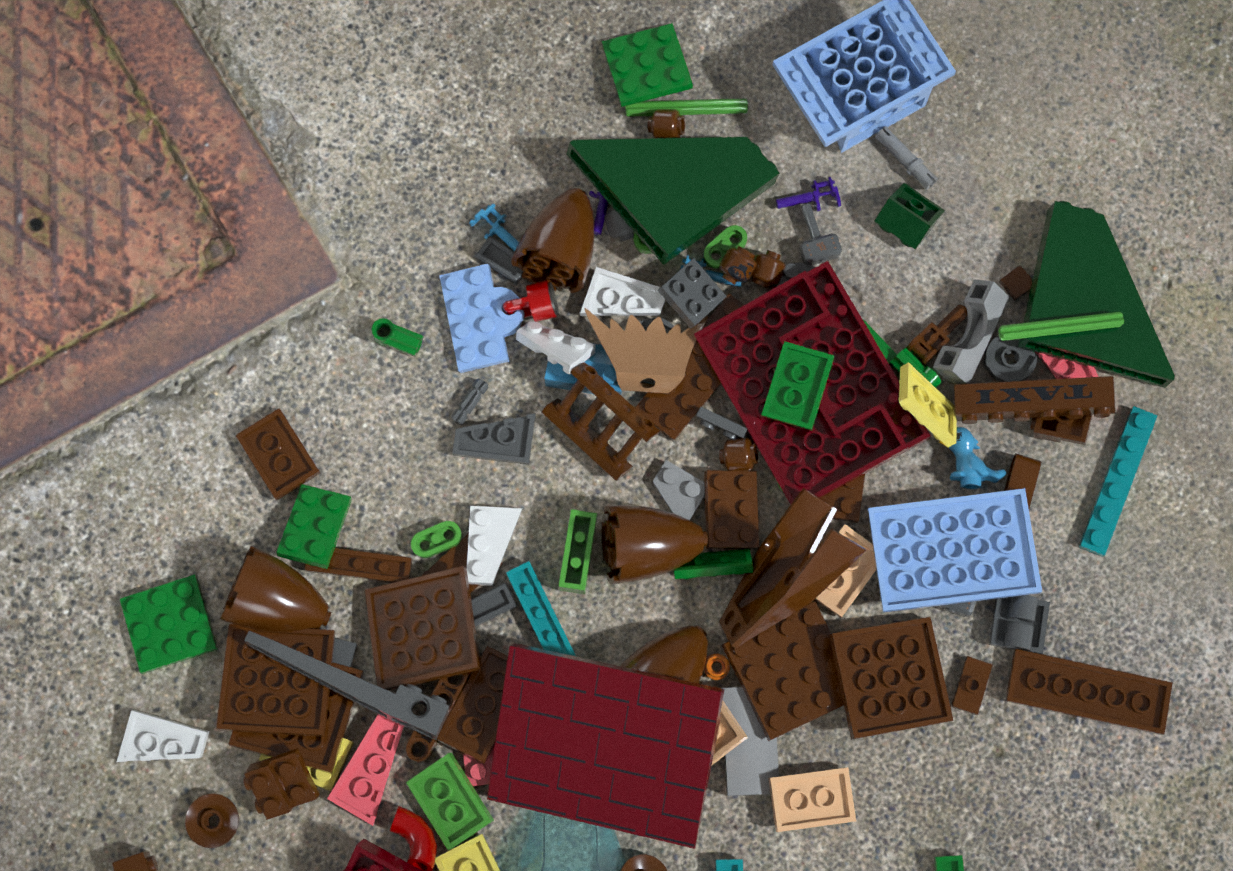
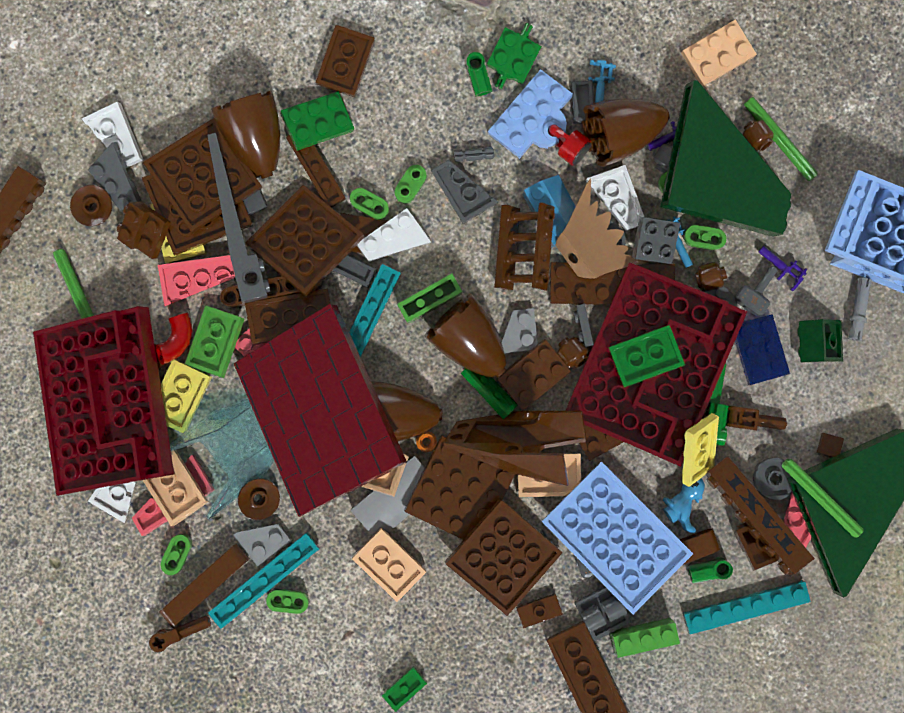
camera: 50 degrees right, 10 degrees up
(168, 624) = (188, 81): green plate -> none
(202, 774) = (112, 176): none -> dark grey wing
(405, 291) = (513, 56): none -> green plate
(449, 484) = (410, 183): none -> bright green plate
(557, 345) = (552, 180): white wing -> none
(559, 102) = (718, 53): none -> light nougat plate
(647, 65) = (789, 90): green plate -> none
(737, 265) = (698, 255): reddish brown head -> none
(875, 277) = (761, 350): none -> clear blue plate
(984, 308) = (795, 437): light grey arch -> none
(1054, 489) = (708, 570): none -> green piece
(1074, 601) = (644, 637): none -> bright green brick

